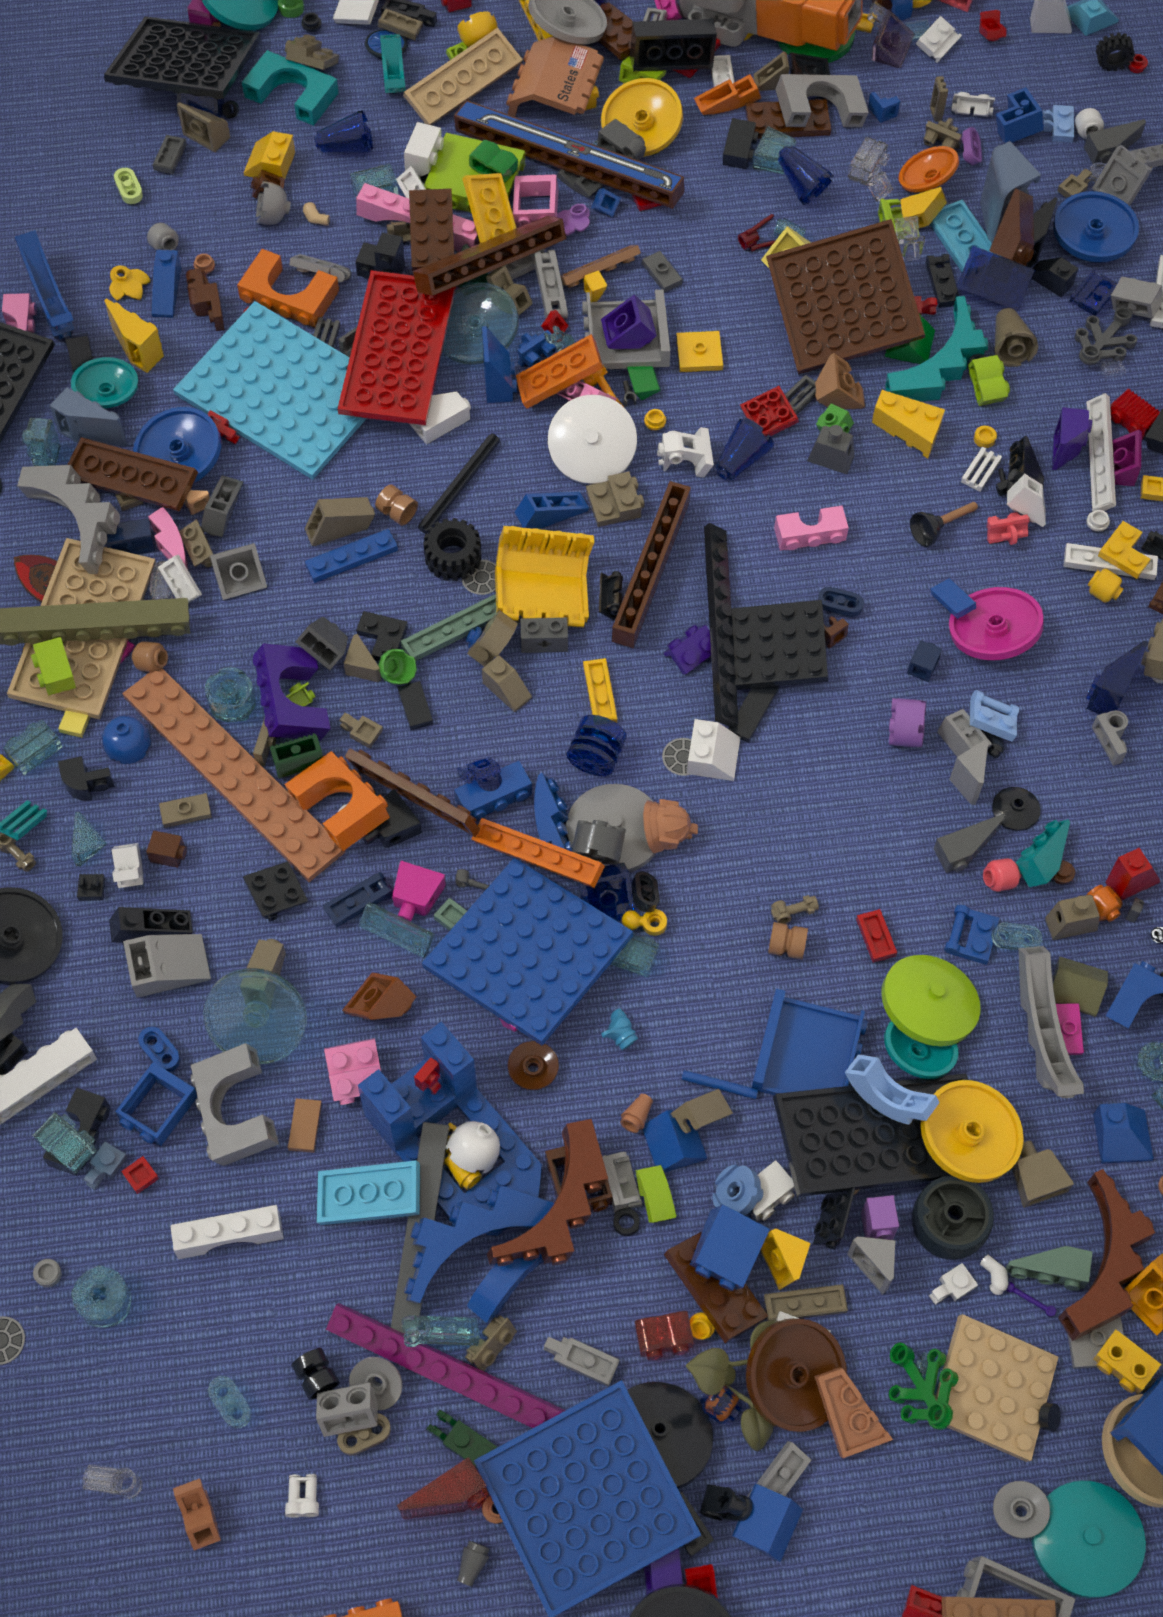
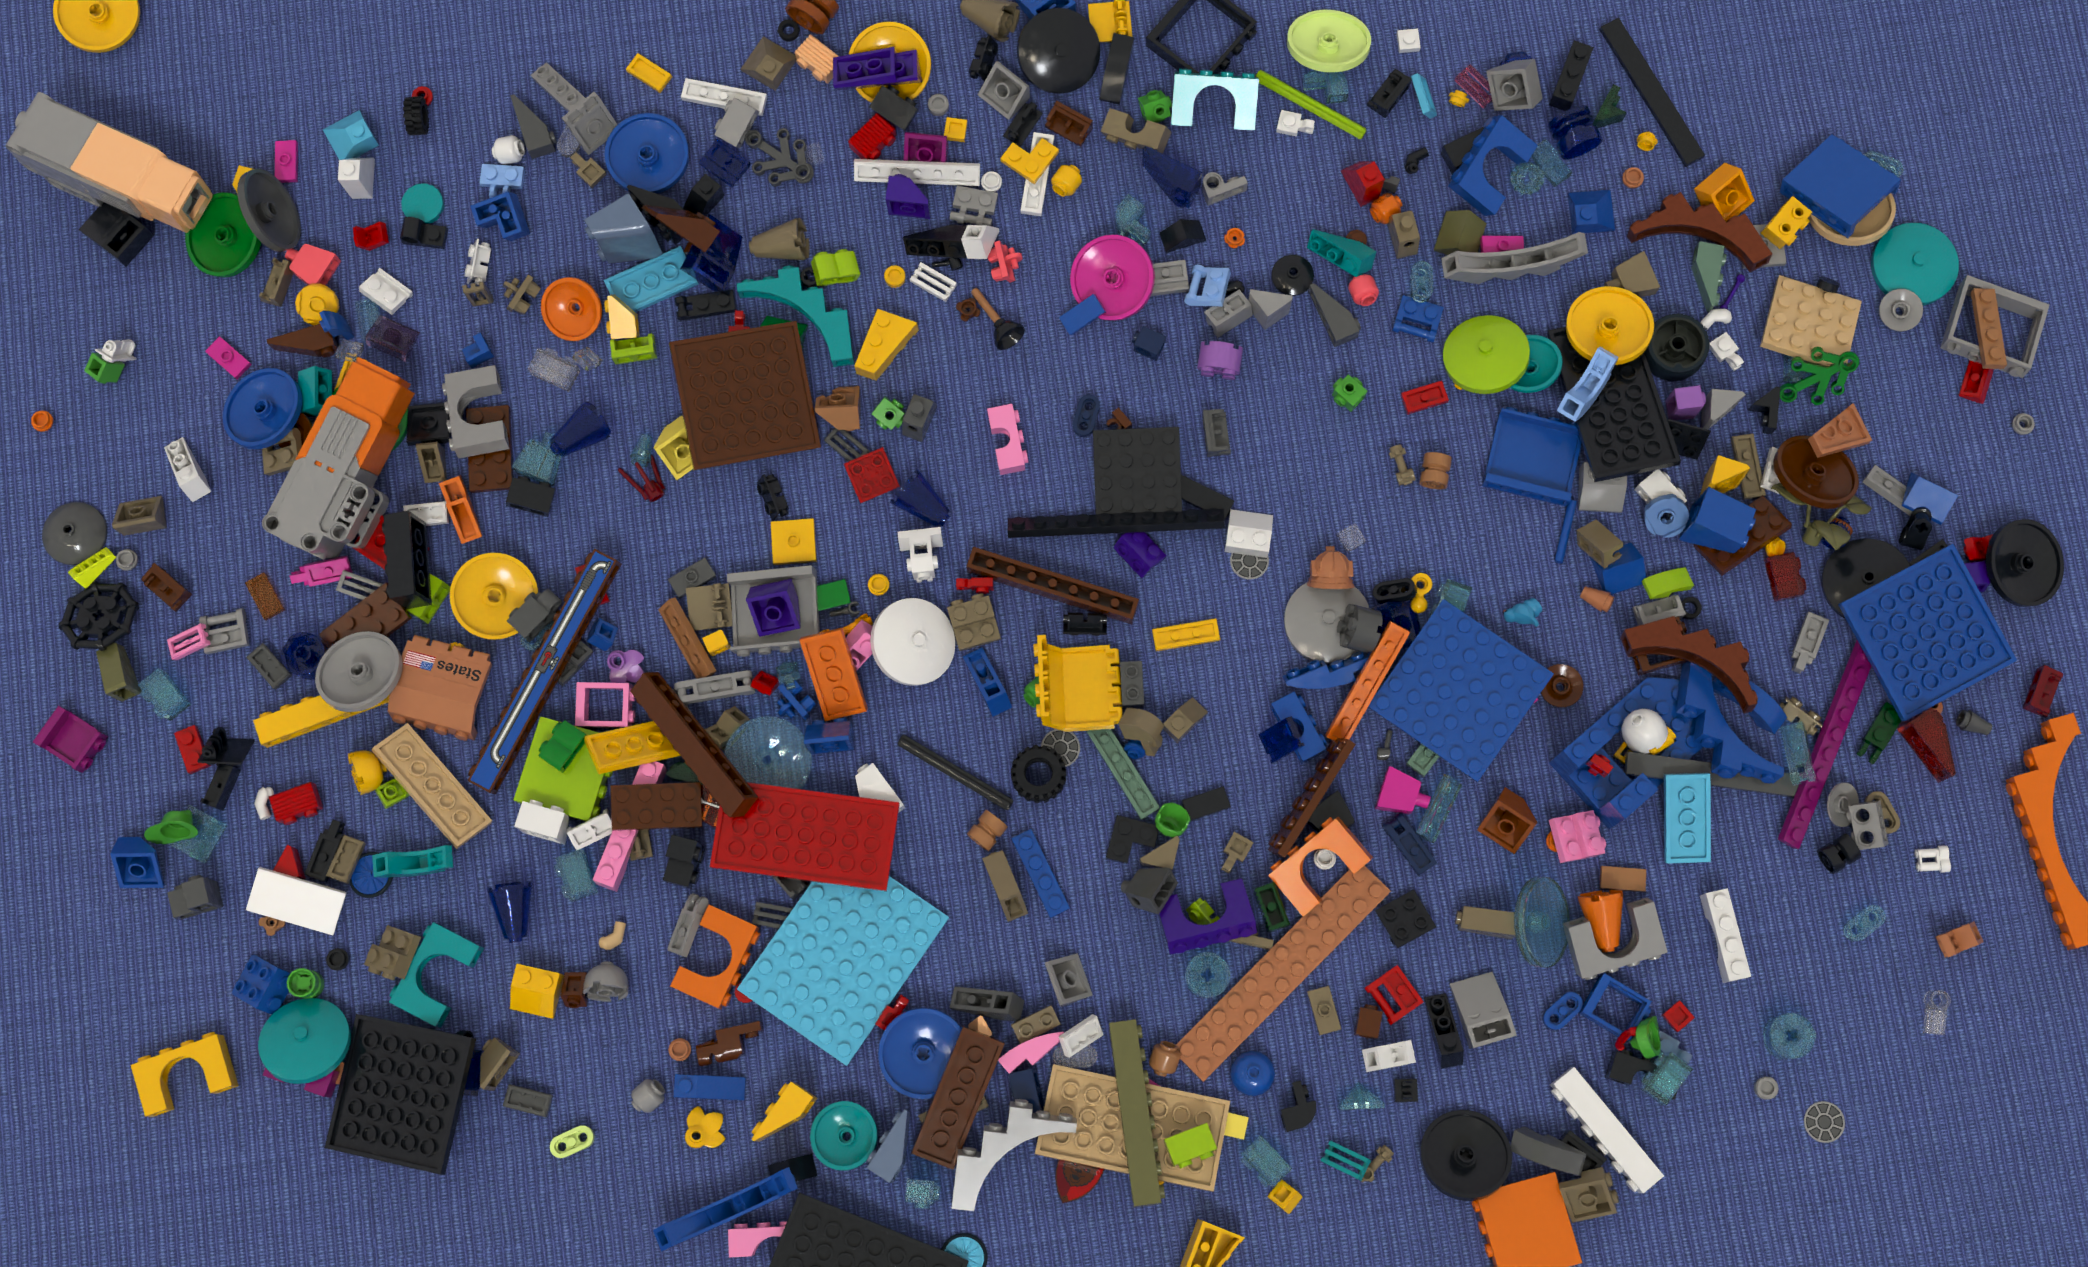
camera: 85 degrees left, 15 degrees up
(115, 1128) = (1645, 1038): none -> bright green piece
(199, 882) = (1399, 989): none -> red plate
(262, 1093) = (1605, 916): none -> orange cone
(596, 745) = (1254, 633): clear blue wheel -> none
(632, 281) = (709, 606): none -> dark tan hinge
(653, 503) = (980, 585): none -> red plate
(709, 856) = (1351, 537): none -> clear tile
(736, 334) = (768, 487): none -> black hinge
(763, 1127) = (1601, 495): none -> light grey slope
(826, 722) = (1216, 432): none -> dark grey hinge
(877, 853) = (1348, 392): none -> bright green brick
(886, 1330) = (1768, 406): none -> black slope
(908, 237) = (659, 332): clear slope -> none
(953, 493) = (968, 303): none -> reddish brown plate
(972, 146) = (530, 266): medium lavender plate -> none
(998, 64) = (420, 234): none -> black plate
(1002, 680) = (1170, 278): none -> light grey plate
(1028, 65) = (423, 202): none -> teal tile
(1054, 699) = (1182, 234): none -> black slope
(1056, 743) = (1234, 232): none -> orange plate
(1069, 643) = (1127, 220): none -> clear light blue brick
(1075, 505) = (976, 201): none -> light grey plate

